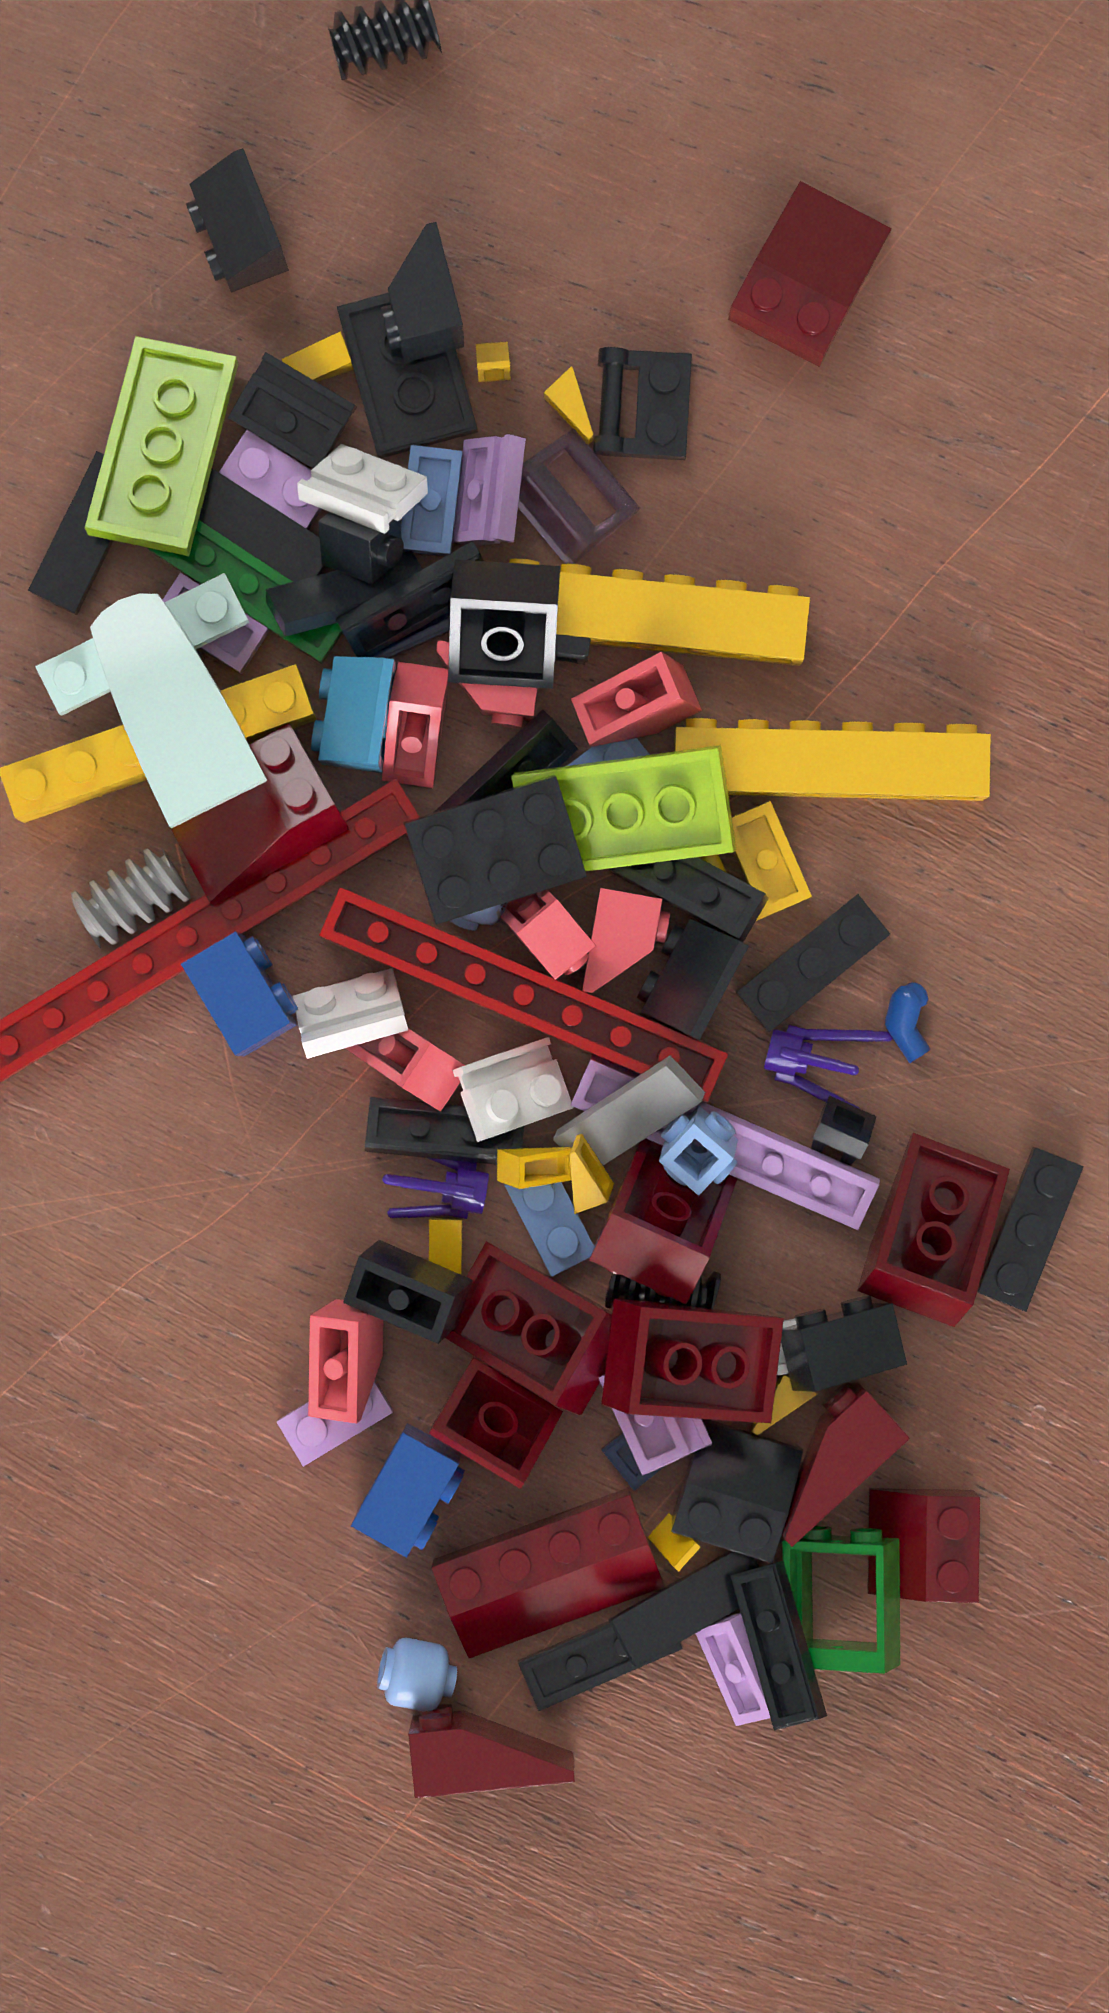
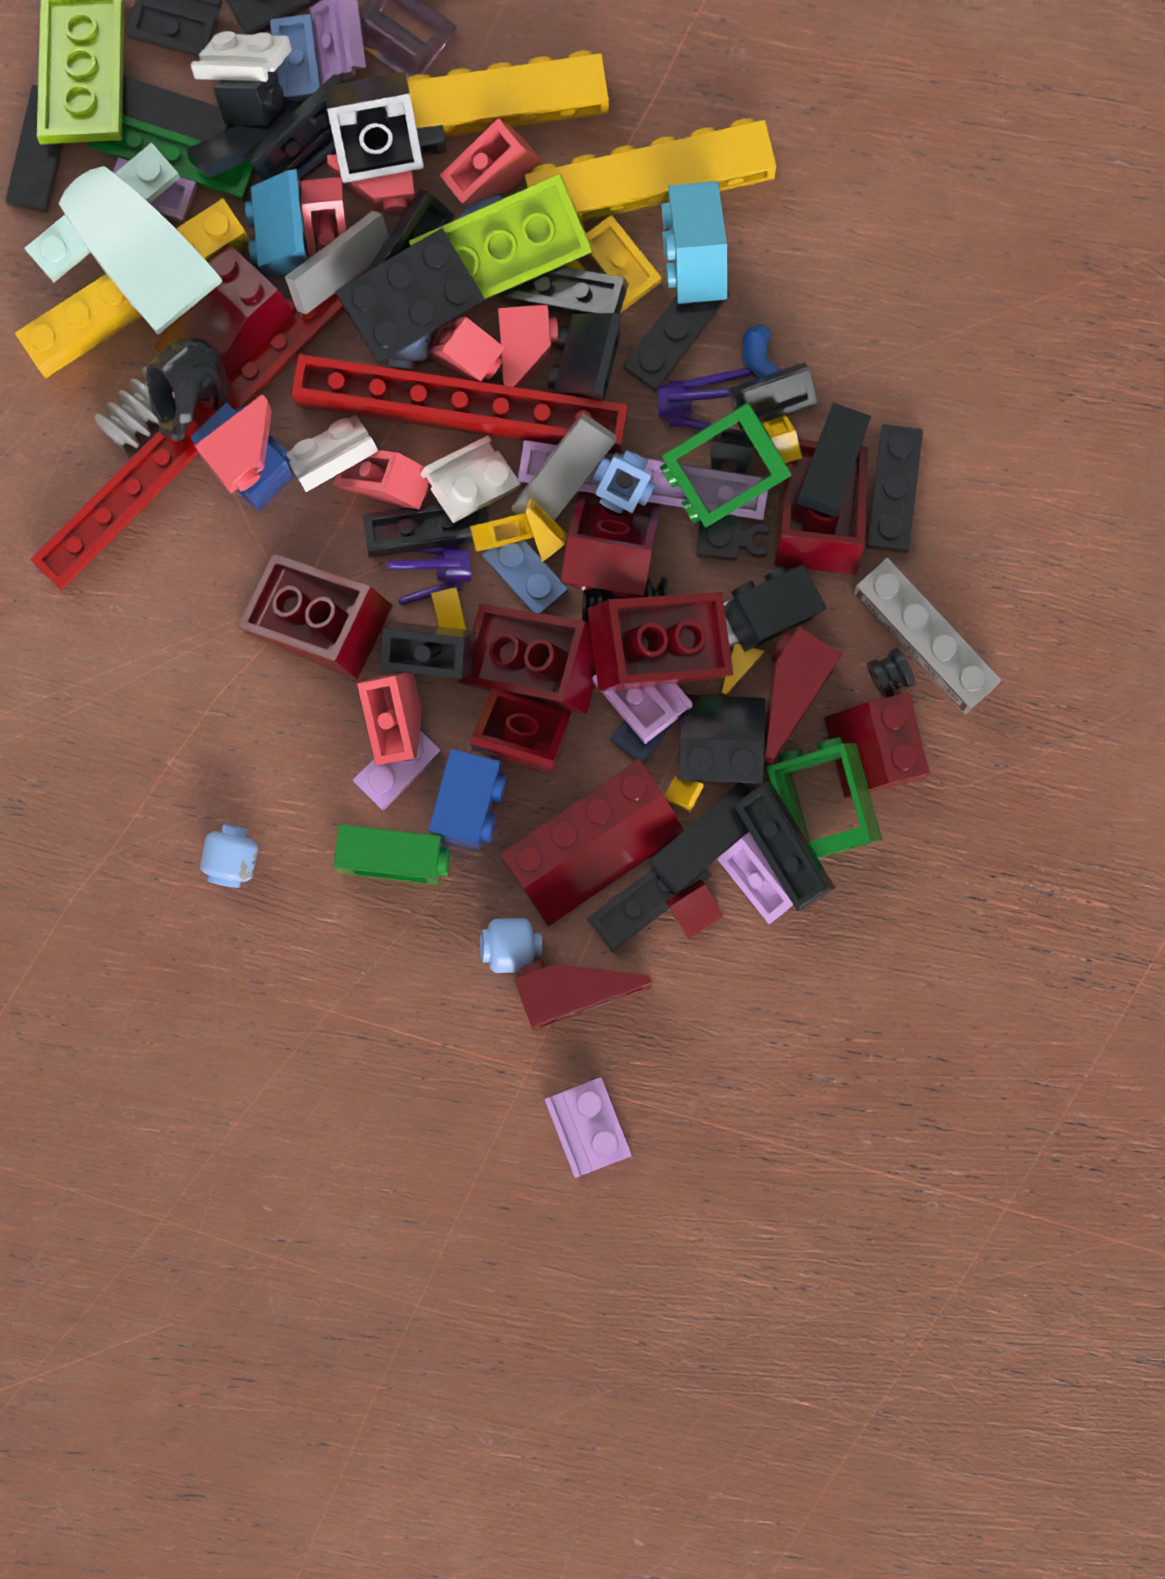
camera: 10 degrees left, 5 degrees down
(103, 1479) = (229, 856): none -> light blue head
(189, 888) = (194, 374): none -> black helmet
(236, 998) = (239, 446): none -> coral slope
(270, 477) = (170, 71): lavender plate -> none
(281, 1208) = (316, 615): none -> dark red slope
(298, 1533) = (391, 855): none -> green window
(417, 780) = (337, 263): none -> light grey tile
(455, 1914) = (588, 1127): none -> lavender plate
(651, 1686) = (694, 908): none -> dark red tile
(805, 1235) = (726, 537): none -> black plate
(862, 1105) = (676, 475): none -> green window
(864, 871) = (695, 242): none -> medium azure brick
(907, 1133) = (784, 438): none -> yellow piece
(910, 1078) = (776, 393): none -> black tile
(964, 1181) = (833, 459): none -> black tile
(964, 1459) = (891, 673): none -> black wheel
(1020, 1427) = (926, 636): none -> light grey brick

